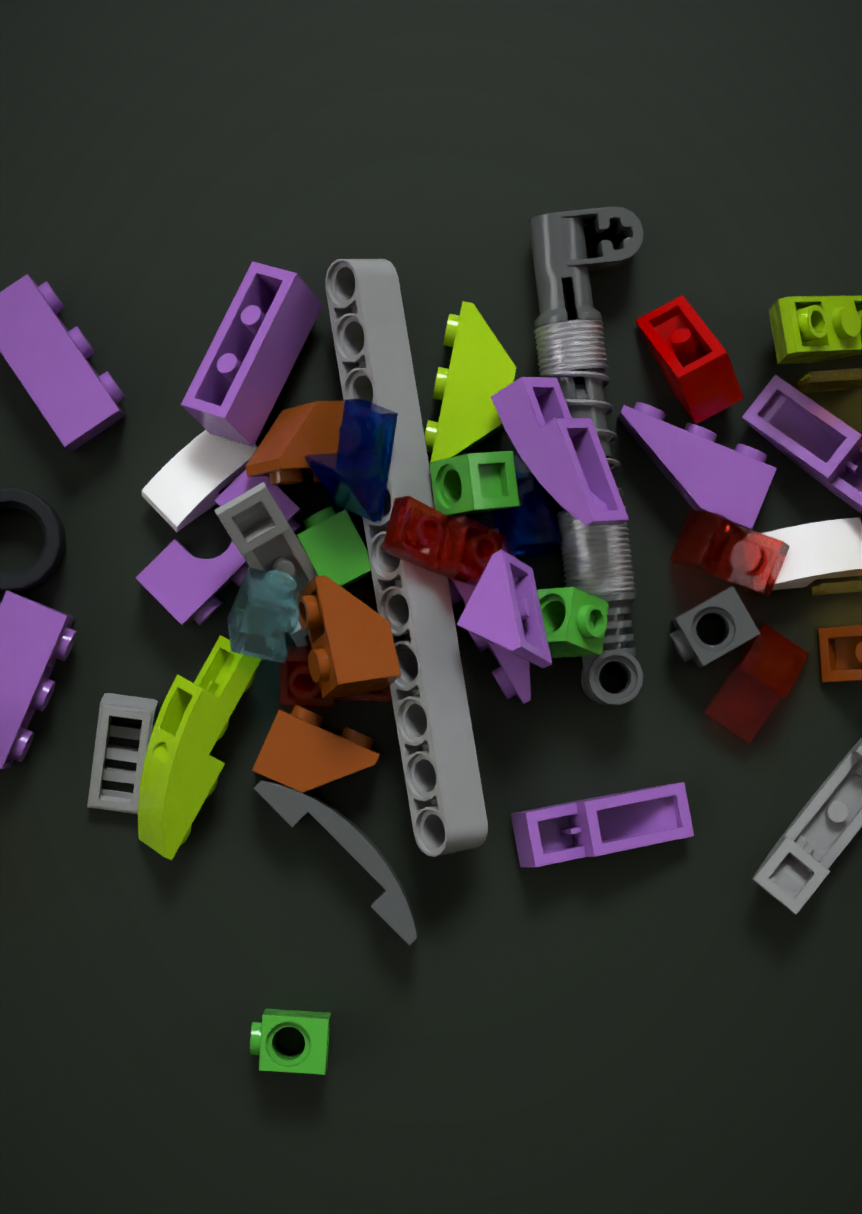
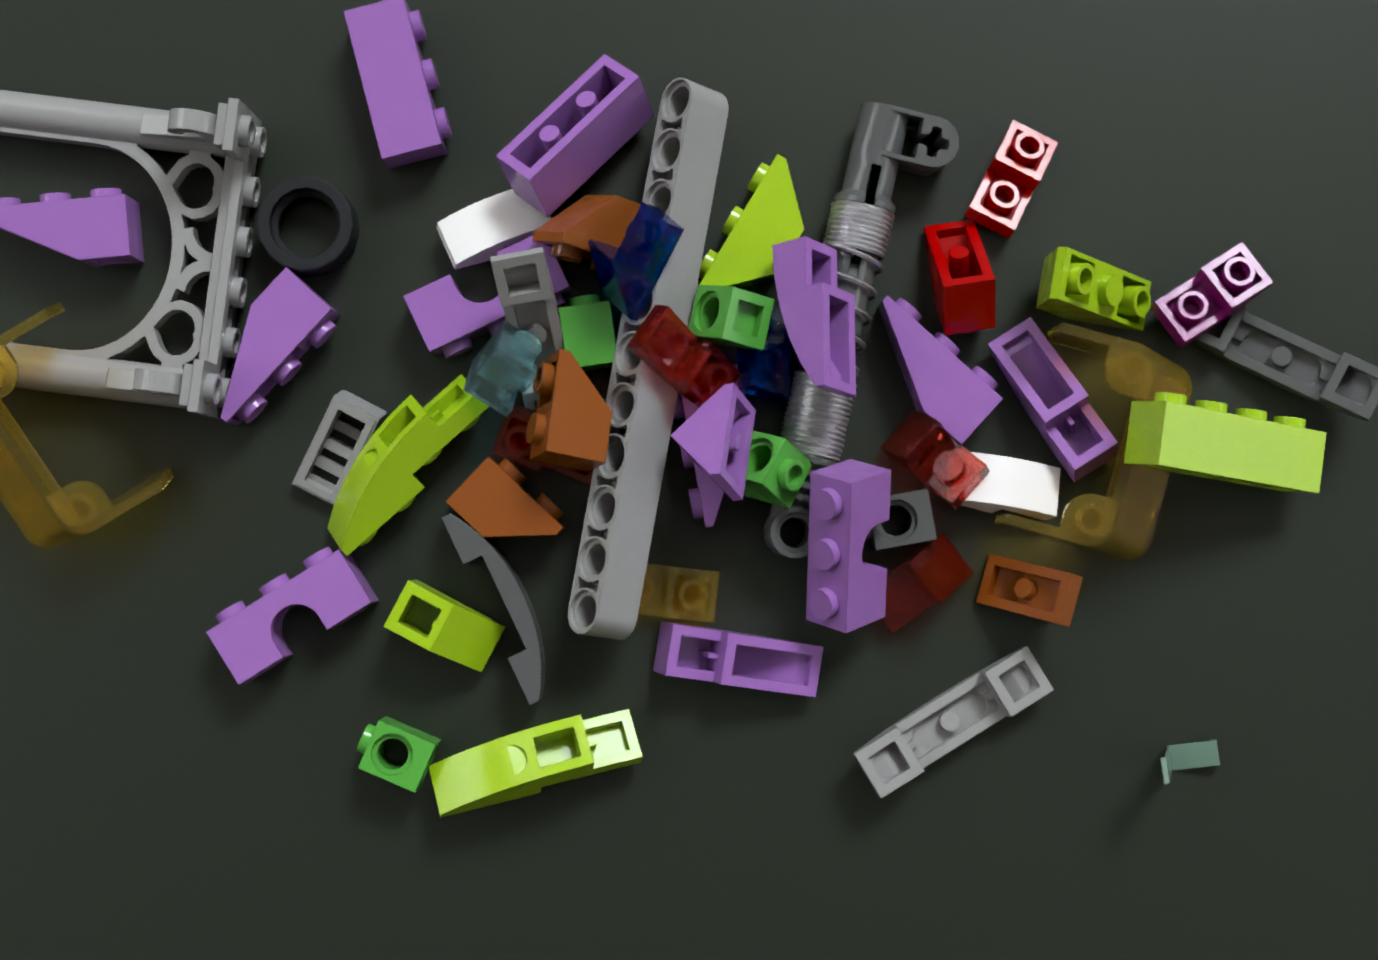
camera: 15 degrees right, 0 degrees up
(102, 975) = (252, 635): none -> medium lavender arch
(294, 896) = (444, 625): none -> lime slope
(432, 999) = (533, 759): none -> lime slope
(520, 778) = (679, 593): none -> clear yellow slope
(656, 638) = (843, 509): none -> medium lavender arch
(706, 241) = (1011, 179): none -> red slope

